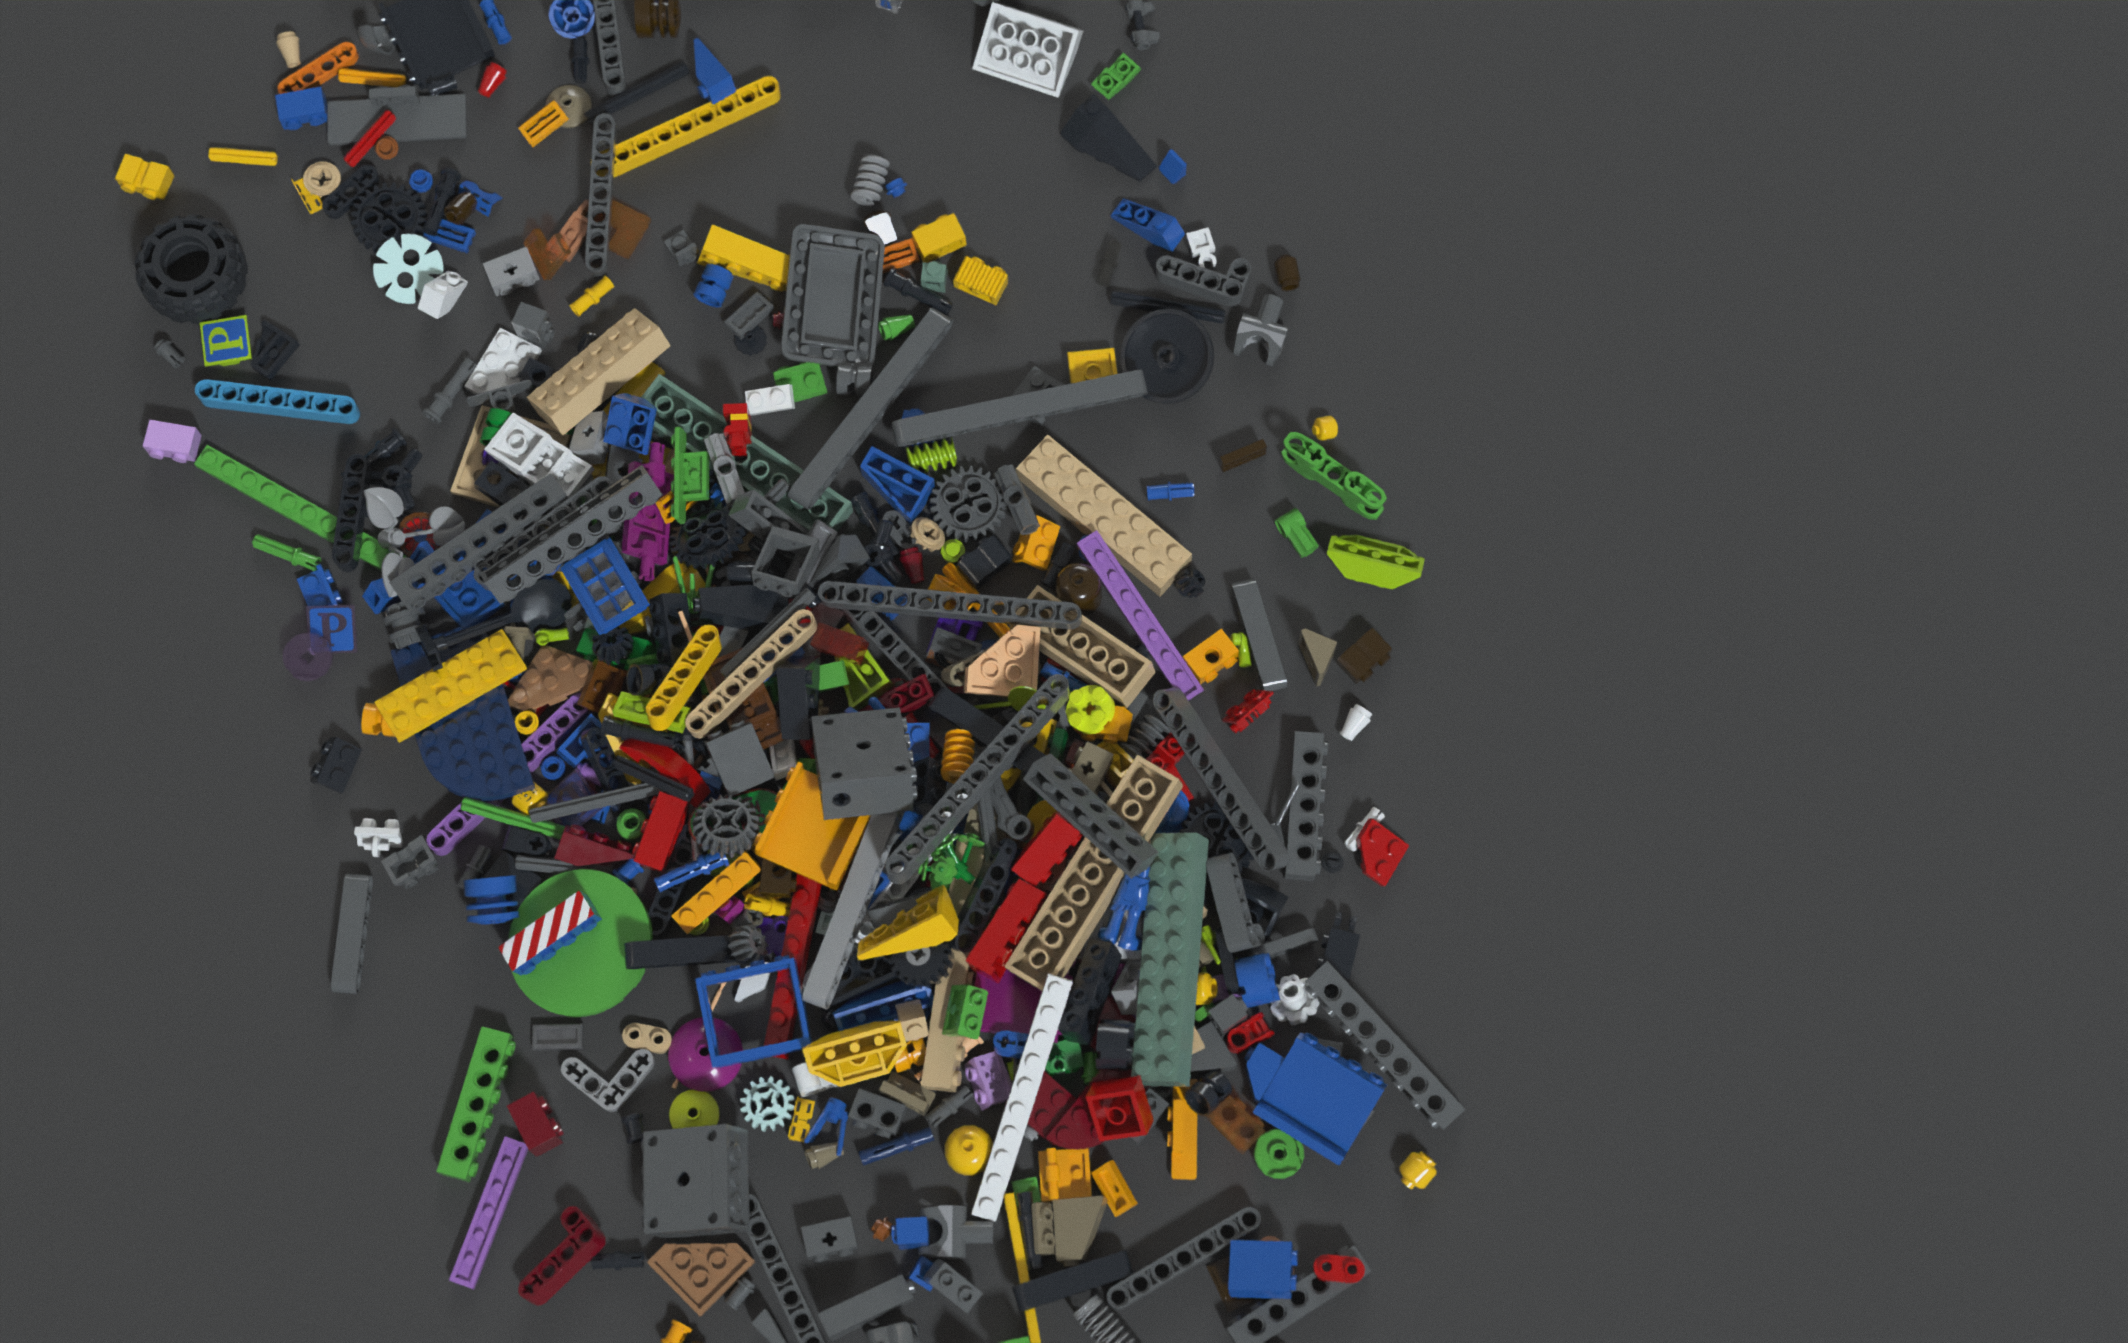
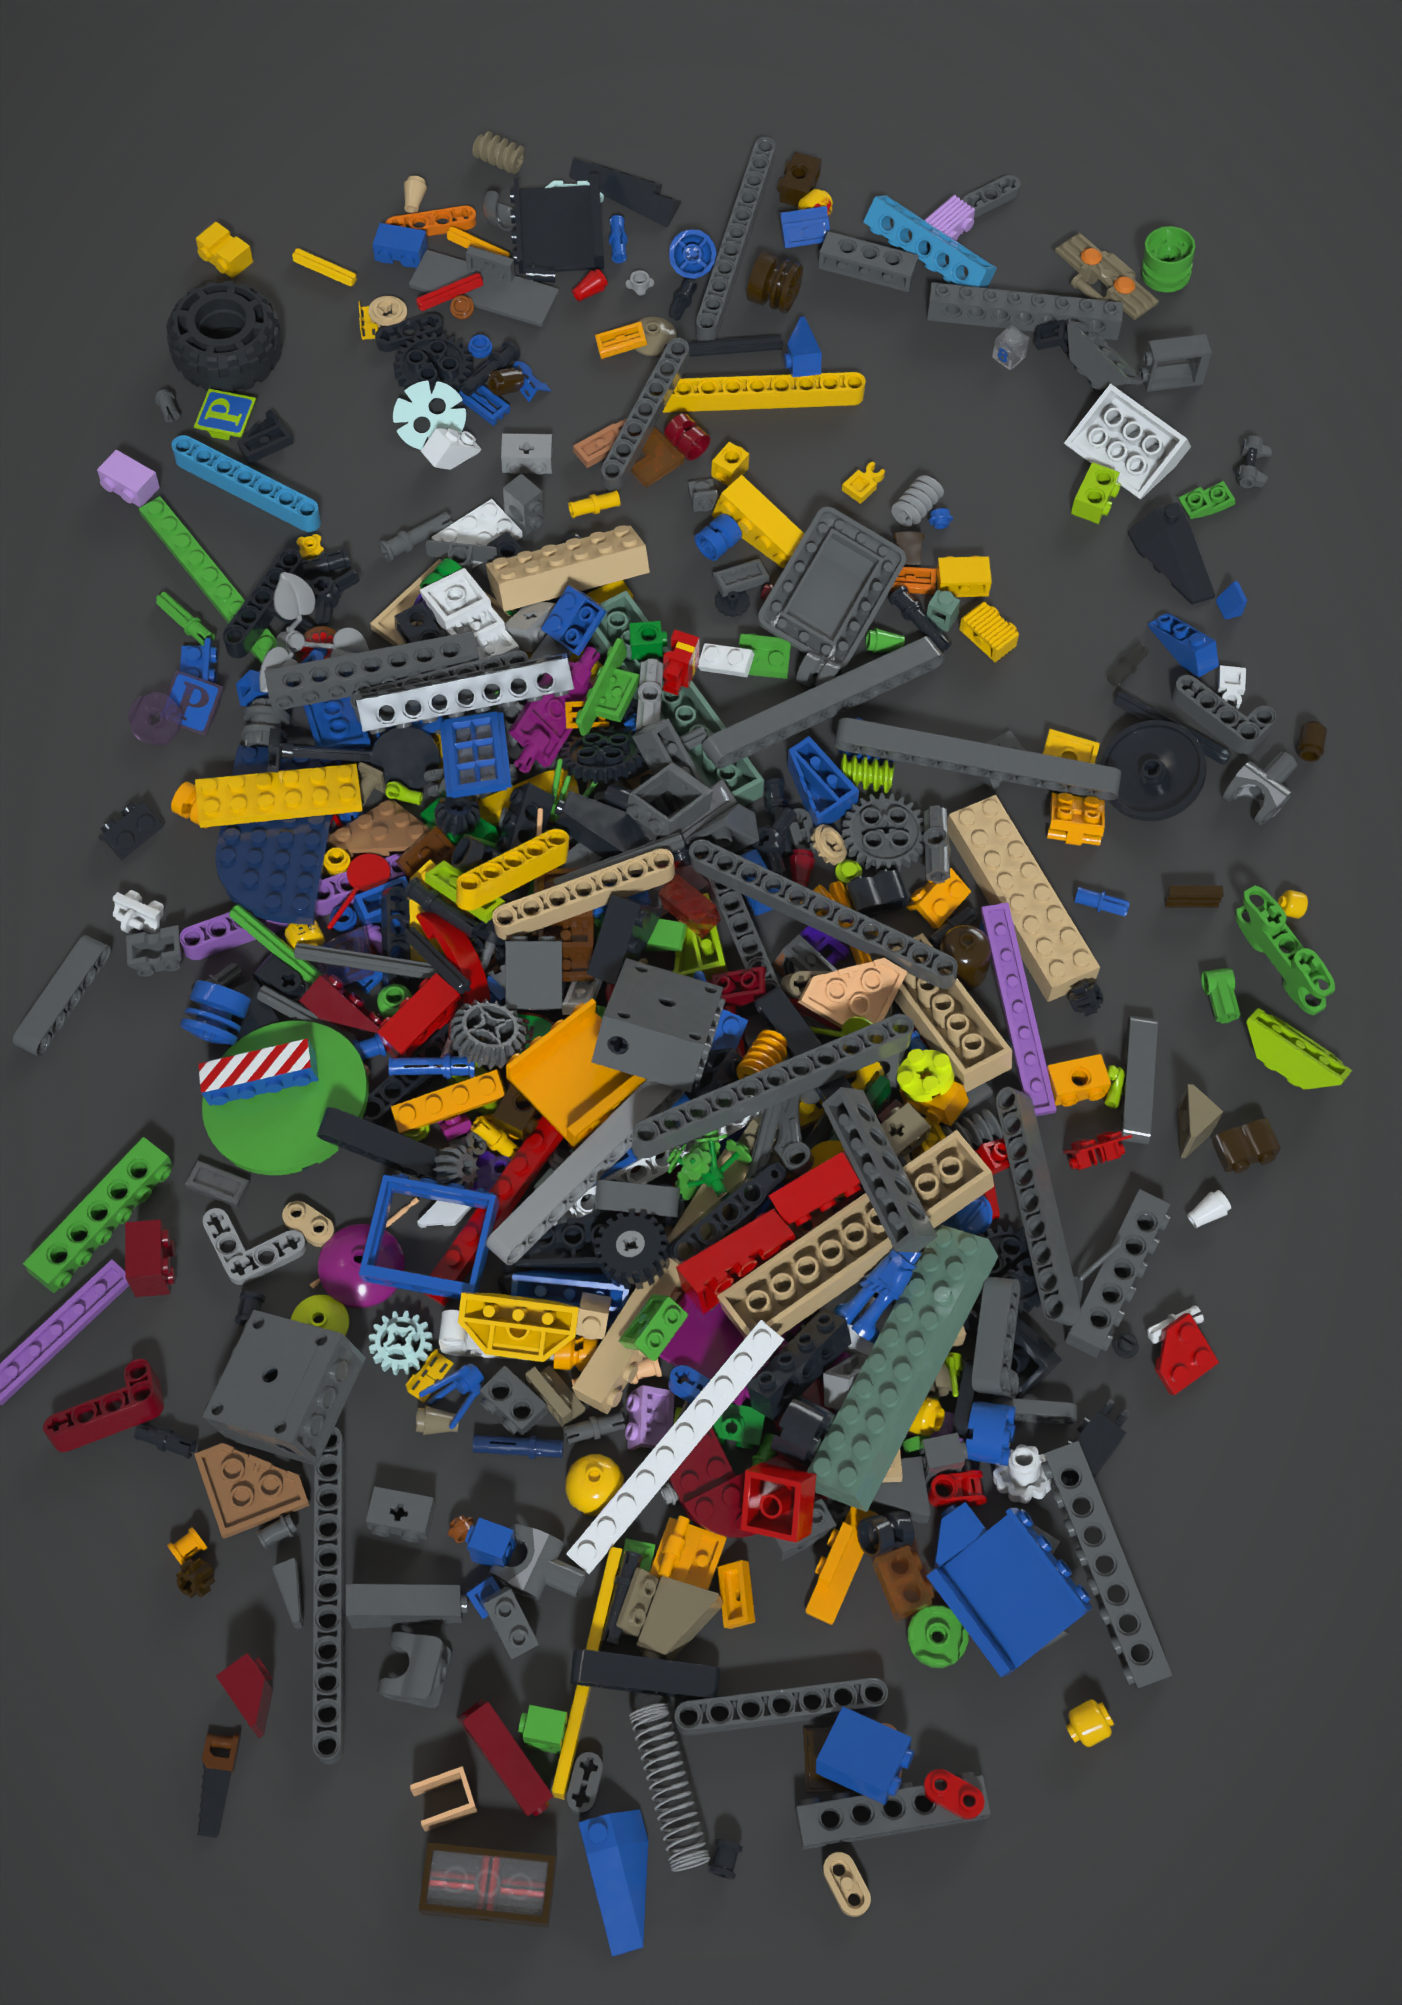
camera: 20 degrees right, 10 degrees down
(362, 445) = (312, 551): none -> yellow plate
(531, 52) = (639, 282): none -> light grey plate
(547, 255) = (569, 449): clear orange tile -> none
(557, 724) = (363, 874): none -> red piece
(647, 199) = (687, 437): none -> dark red wheel
(693, 218) = (730, 464): none -> yellow brick
(696, 425) = (644, 649): none -> green brick
(815, 182) = (862, 484): none -> yellow plate
(921, 927) = (650, 1216): yellow wedge -> none
(1020, 109) = (1095, 493): none -> lime brick
(1121, 424) = (1076, 819): none -> light orange plate

